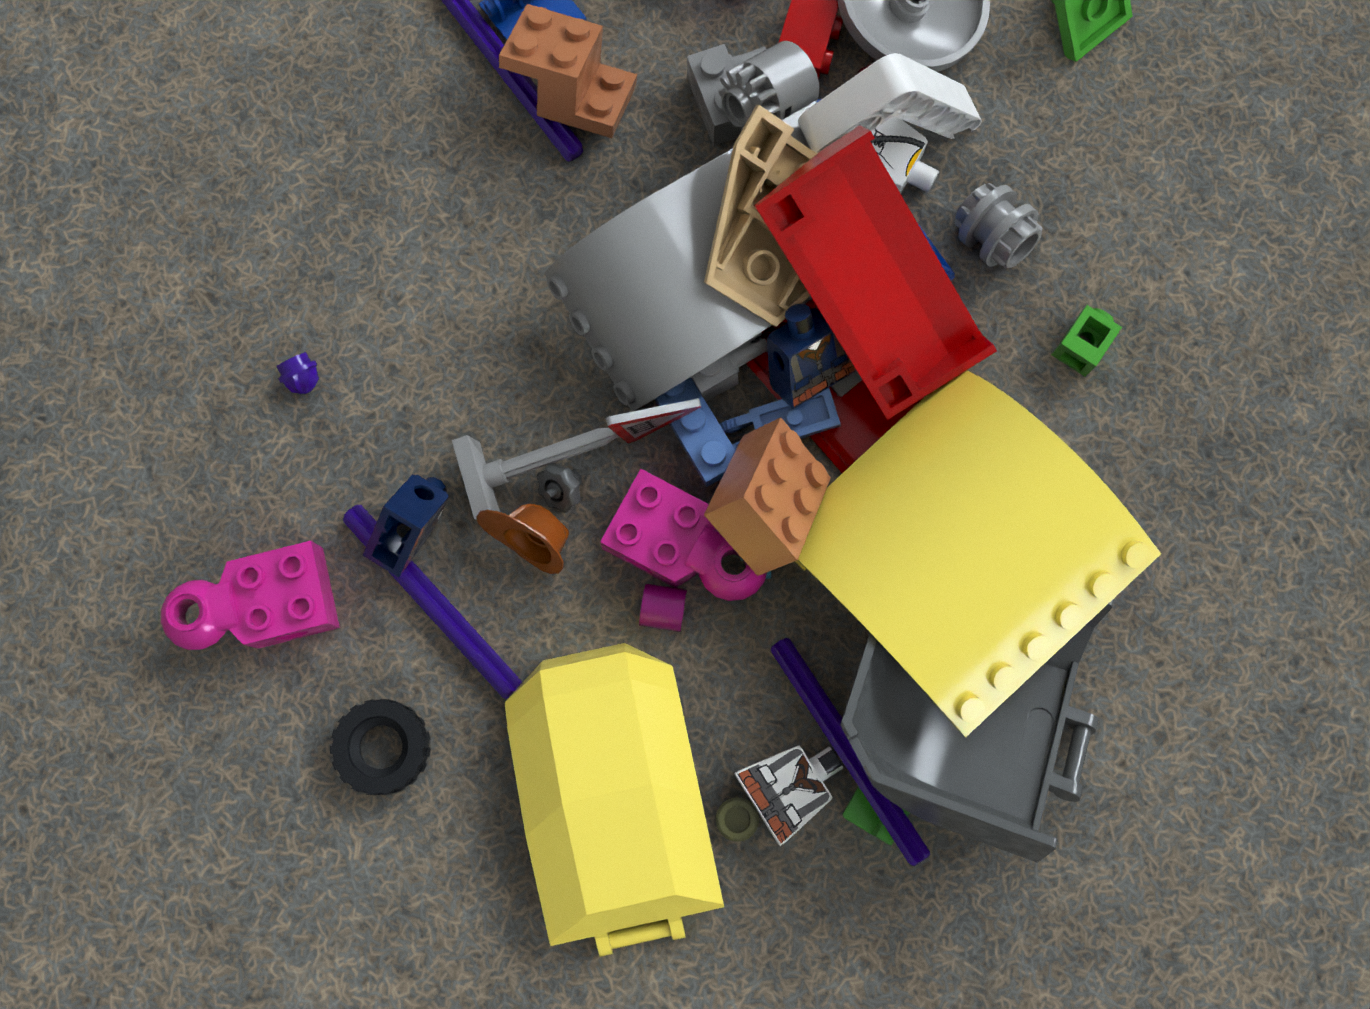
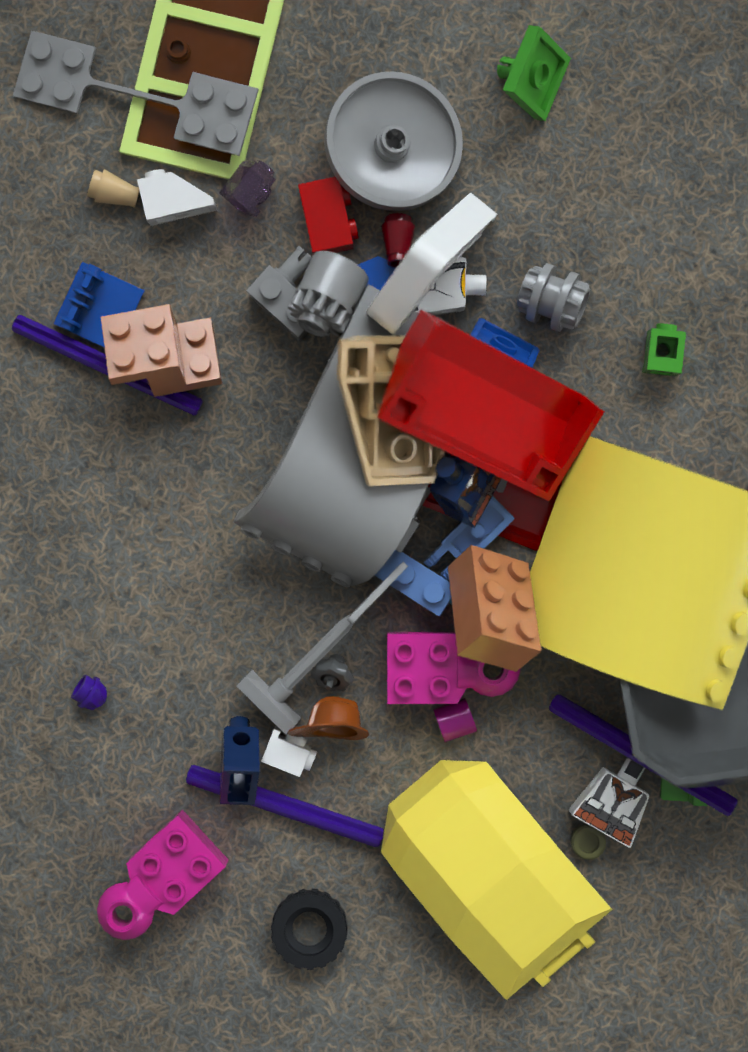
camera: 25 degrees left, 10 degrees up
(466, 544) = (288, 753): none -> white brick

